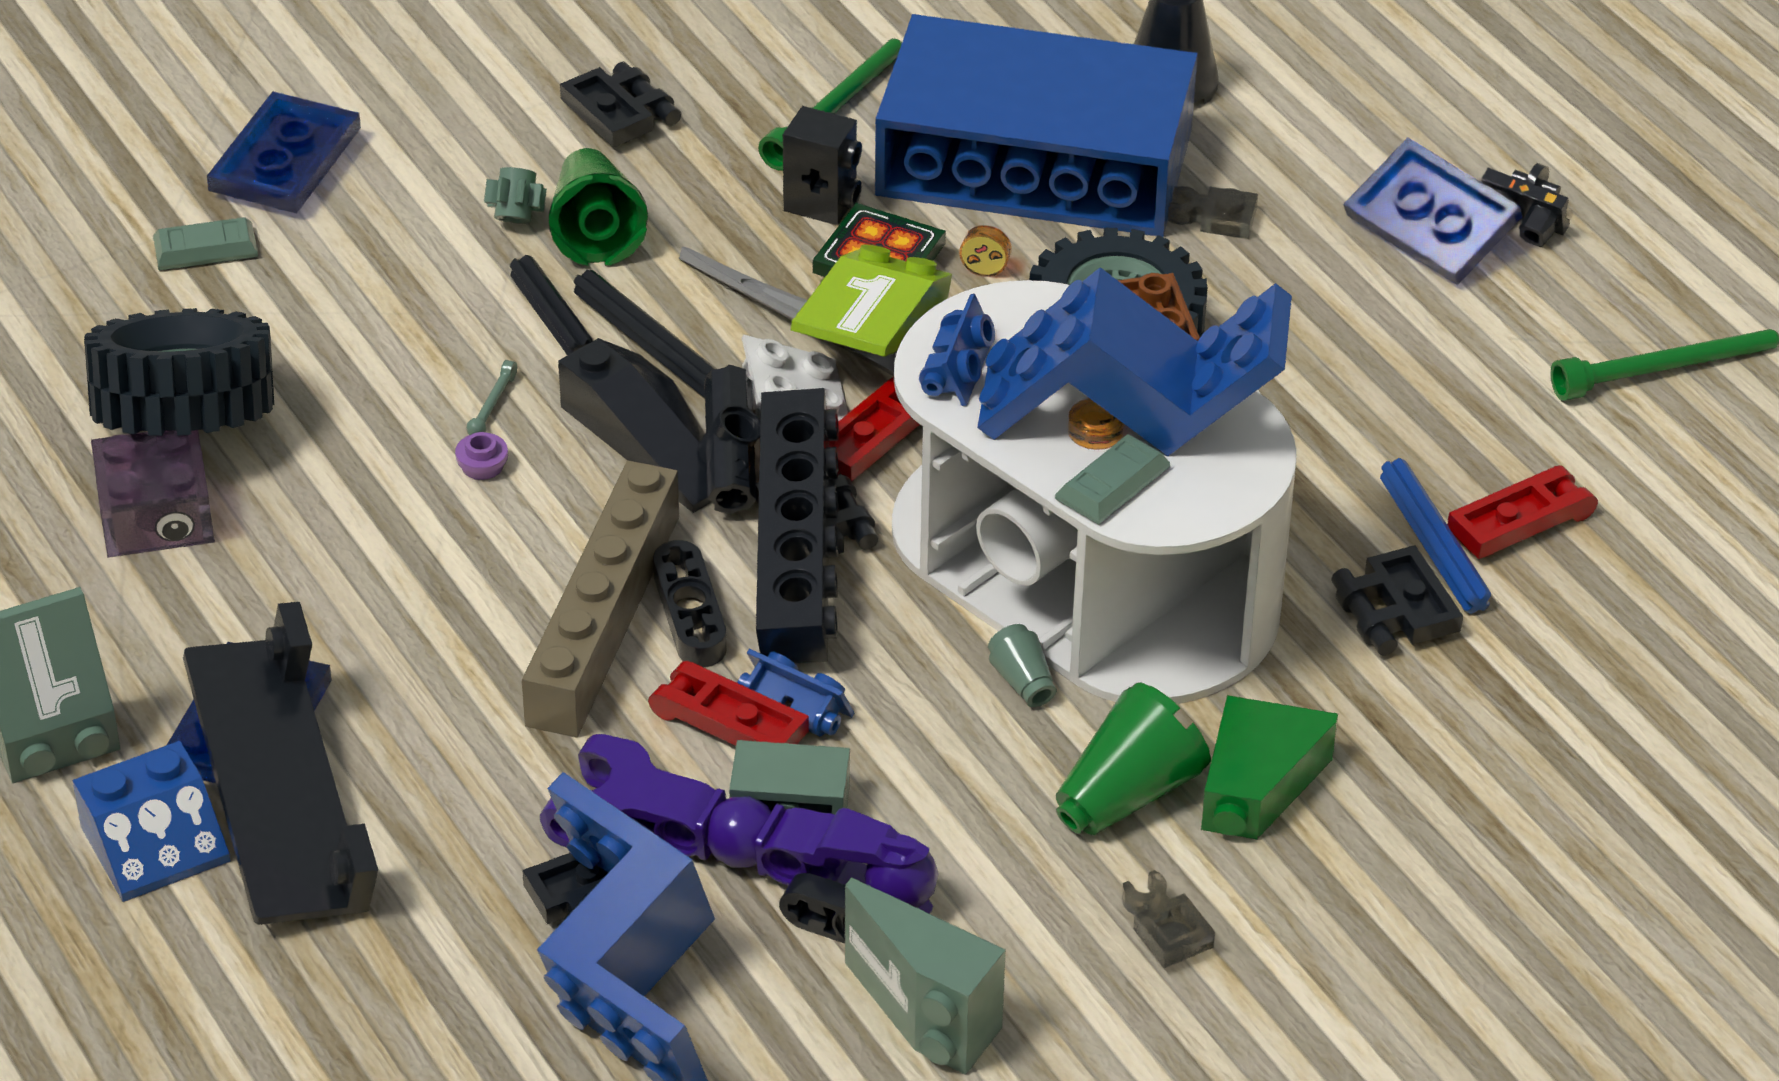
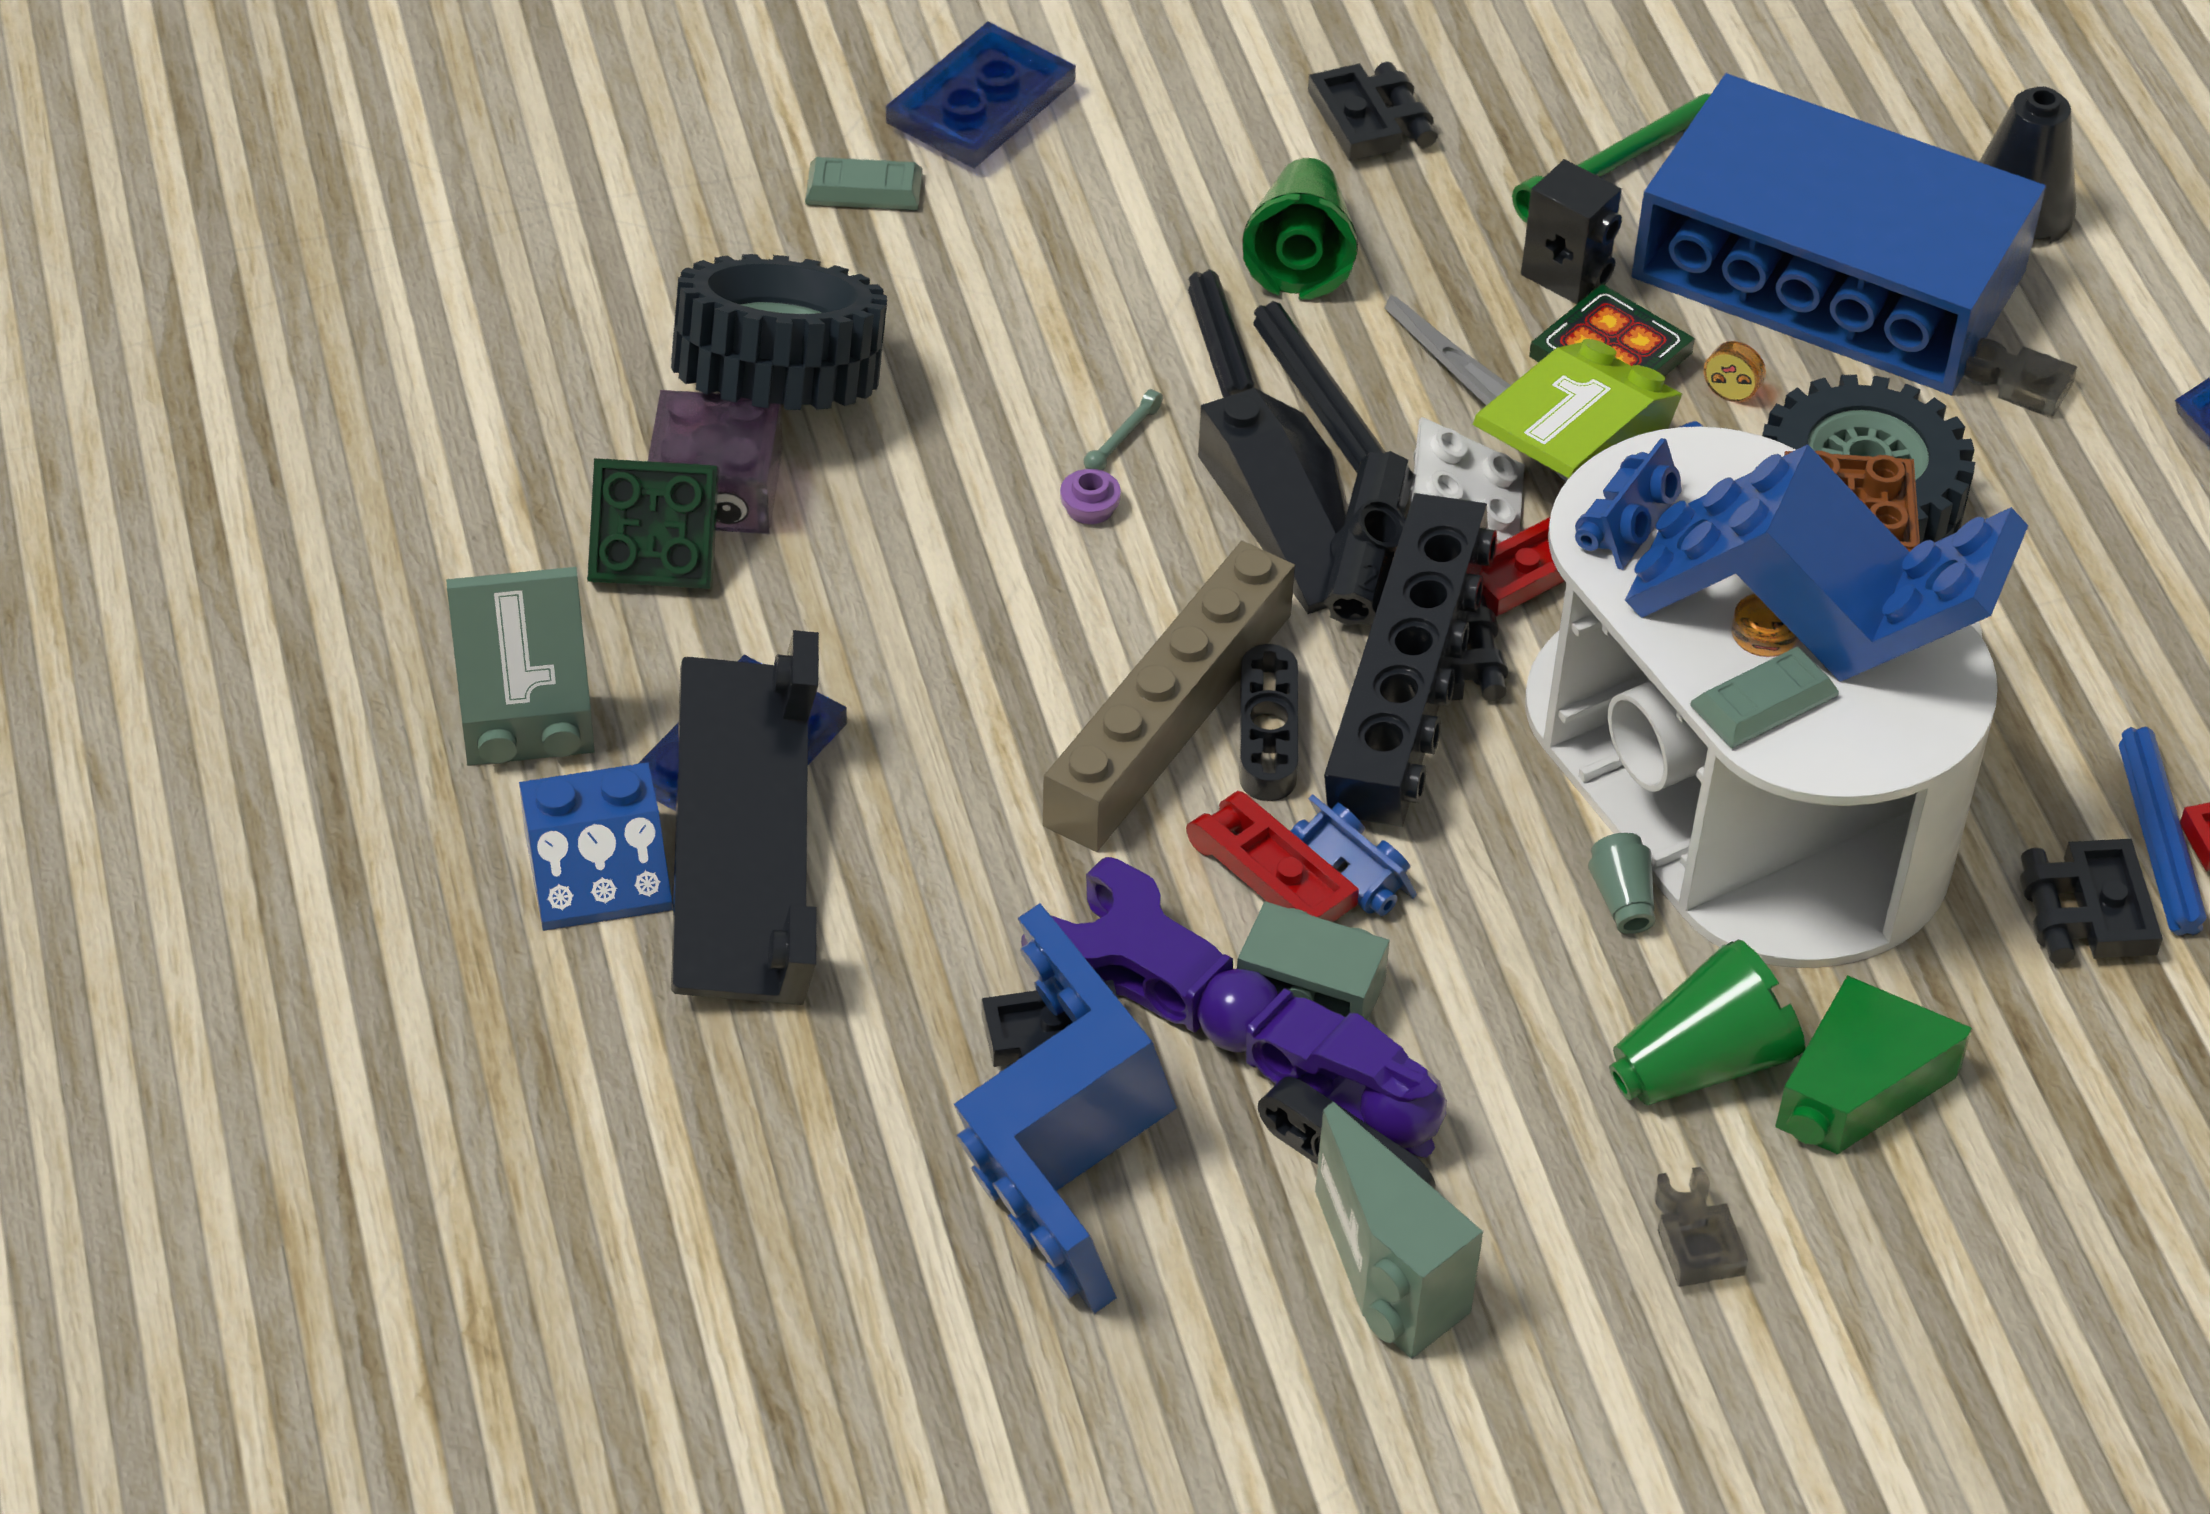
camera: 15 degrees right, 5 degrees up
(118, 548) = (653, 523): none -> dark green tile
(515, 195) = (1218, 197): sand green gear -> none

